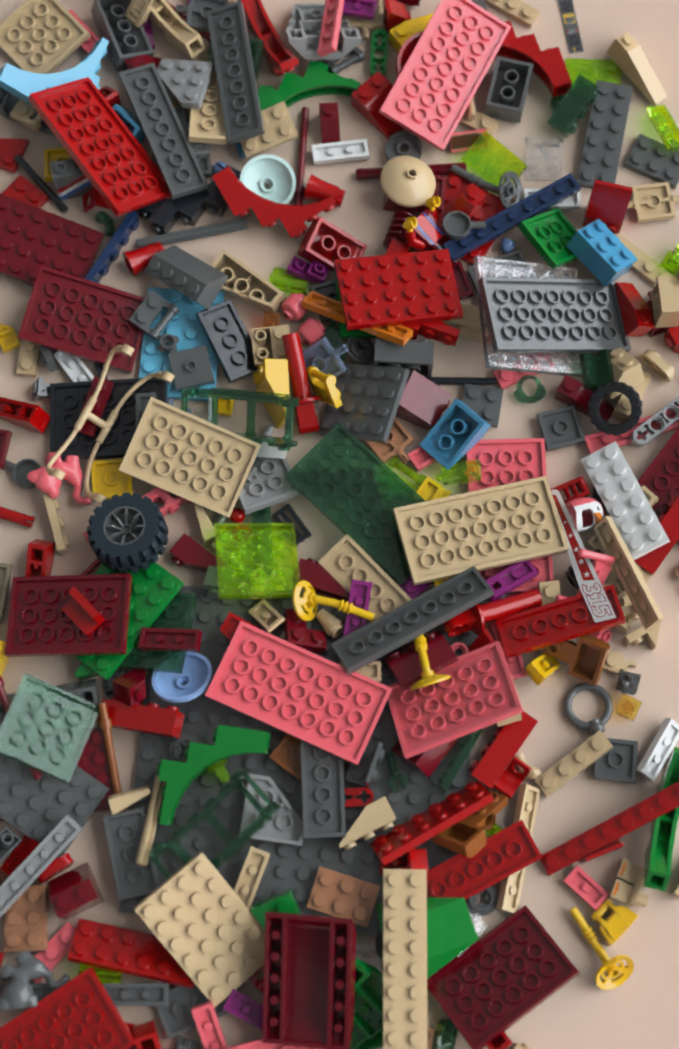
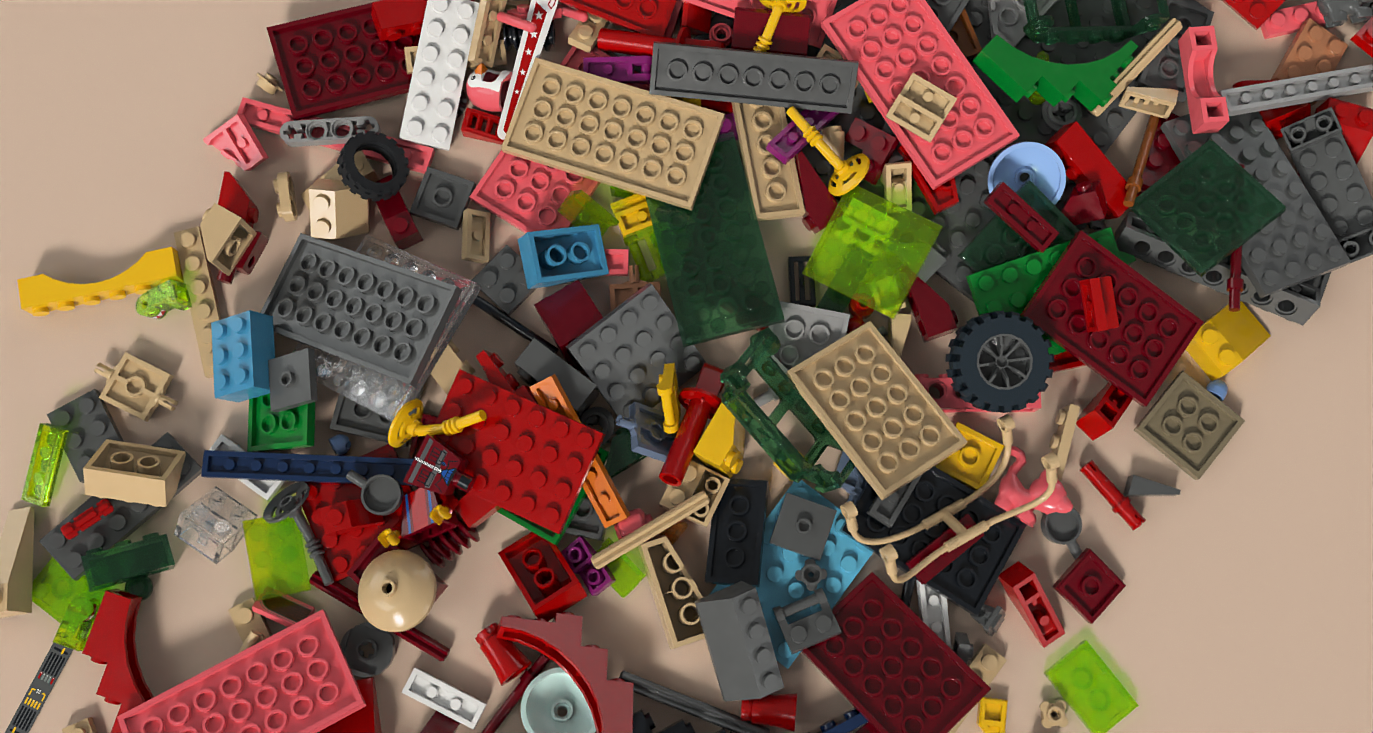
camera: 150 degrees left, 5 degrees up
(74, 892) = (1253, 46): dark red slope -> none
(98, 827) = (1197, 53): none -> coral arch
(282, 304) = (650, 529): none -> tan axle
(283, 667) = (921, 107): none -> tan slope
(311, 331) = (635, 484): coral head -> none
(430, 249) = (439, 468): none -> dark red torso
(469, 266) = (412, 424): none -> yellow dish
(508, 89) = (185, 640): dark grey brick -> none
(521, 417) = (476, 236): none -> tan plate
(539, 394) = (437, 250): clear green piece -> none
(559, 251) = (292, 380): none -> dark grey plate
(574, 58) = (77, 623): none -> clear neon green leg
(596, 369) = (356, 225): clear green panel -> none
(608, 203) = (195, 403): red slope -> none
(609, 151) = (134, 473): none -> tan slope
(614, 111) = (87, 519): none -> red axle
(634, 310) = (261, 271): red slope -> none

